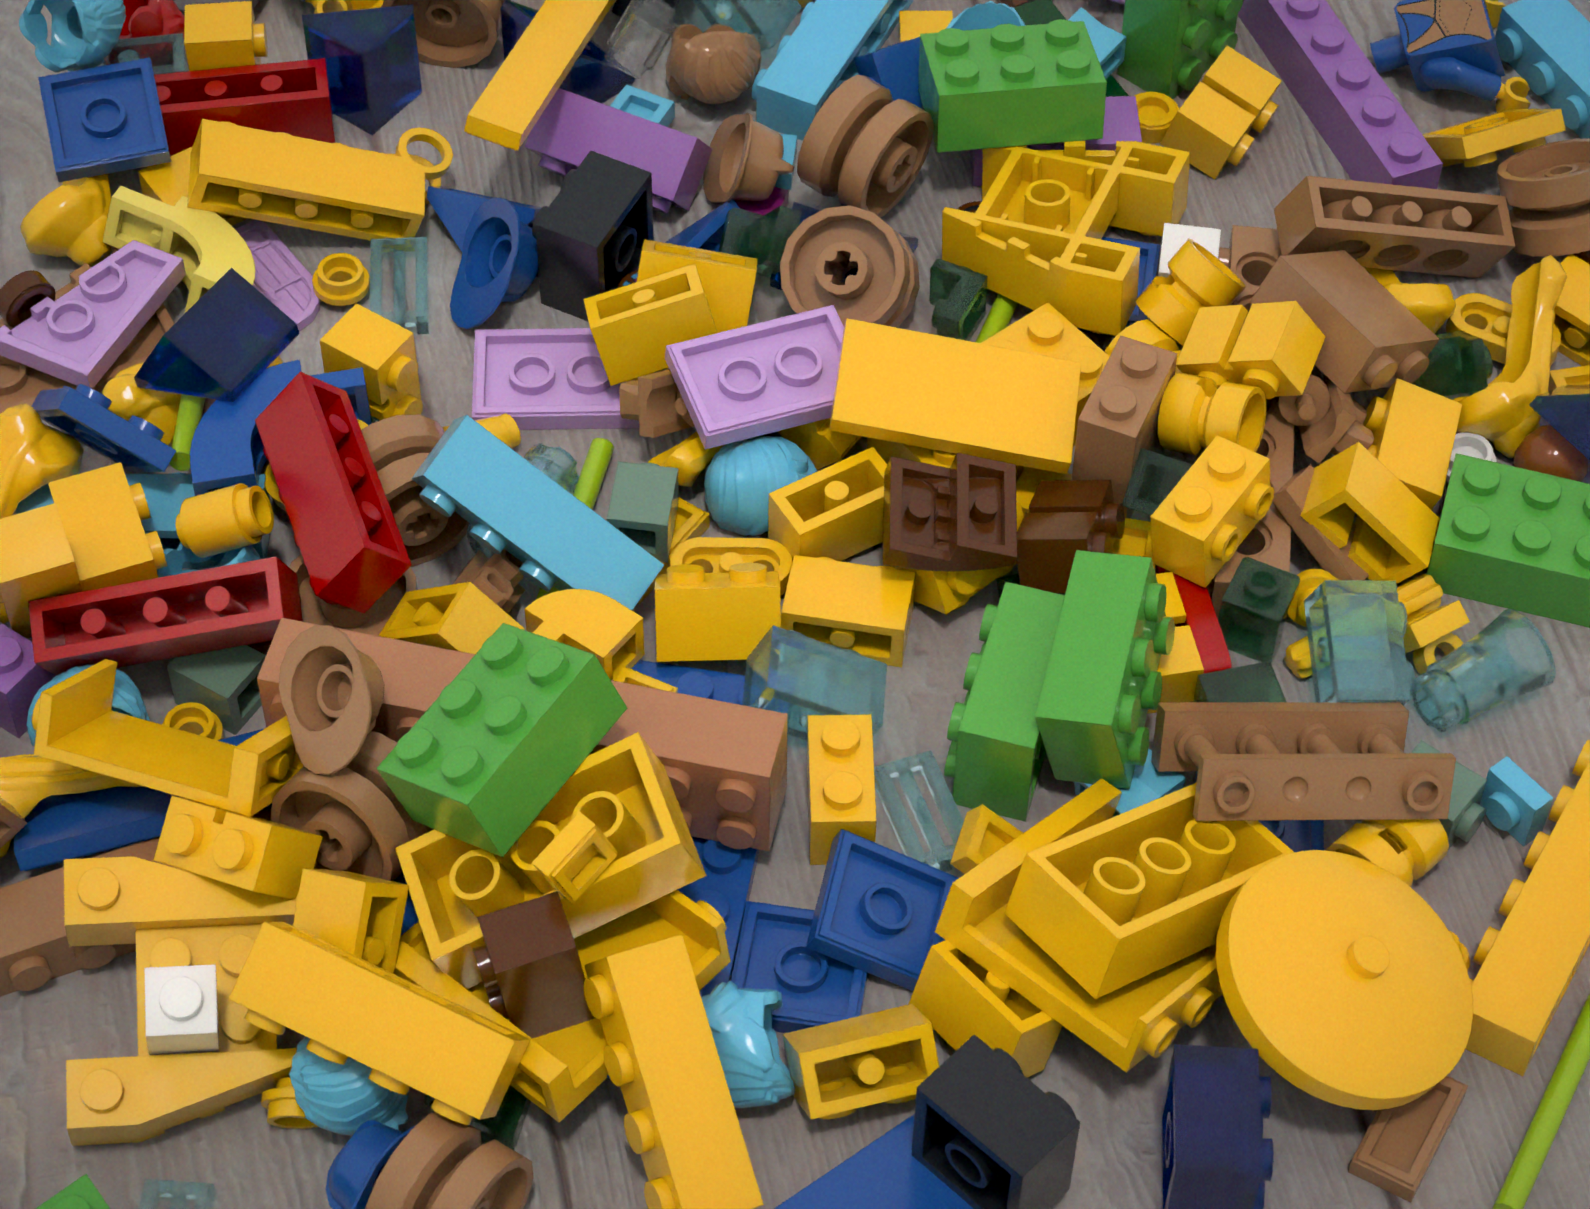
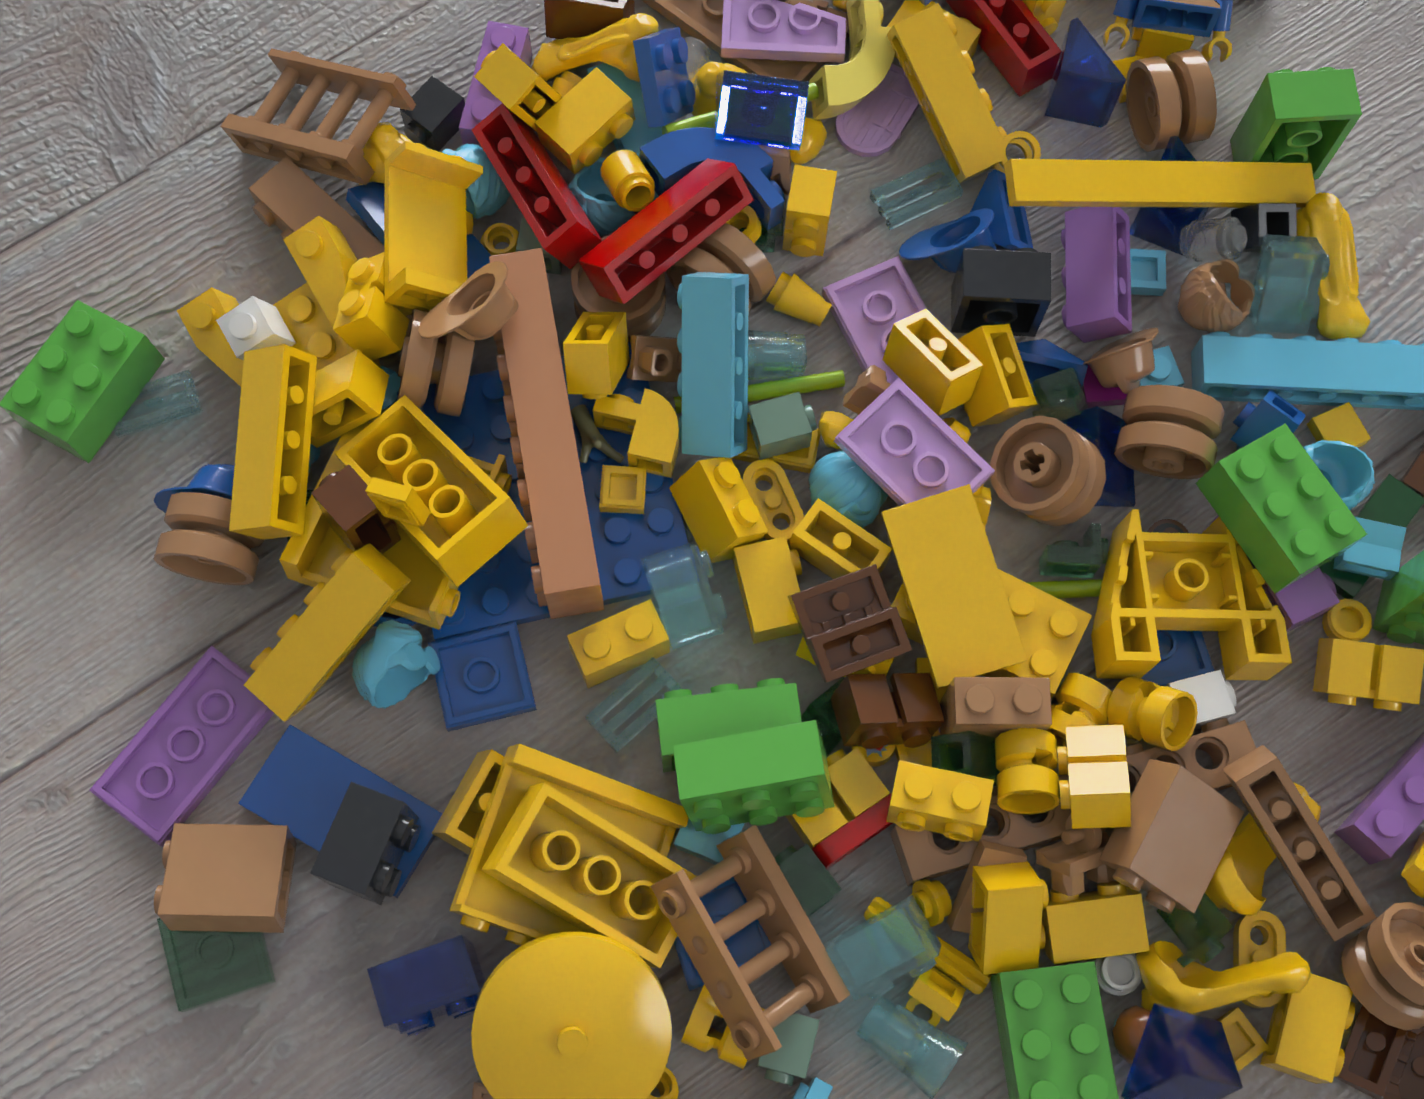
camera: 65 degrees right, 20 degrees up
(341, 280) = (902, 147): yellow plate -> none
(502, 738) = (475, 418): bright green brick -> none
(861, 1061) = (412, 740): yellow brick -> none
(878, 909) = (537, 706): blue tile -> none
(981, 837) = (617, 756): yellow tile -> none
(1256, 609) = (894, 863): clear green bracket -> none

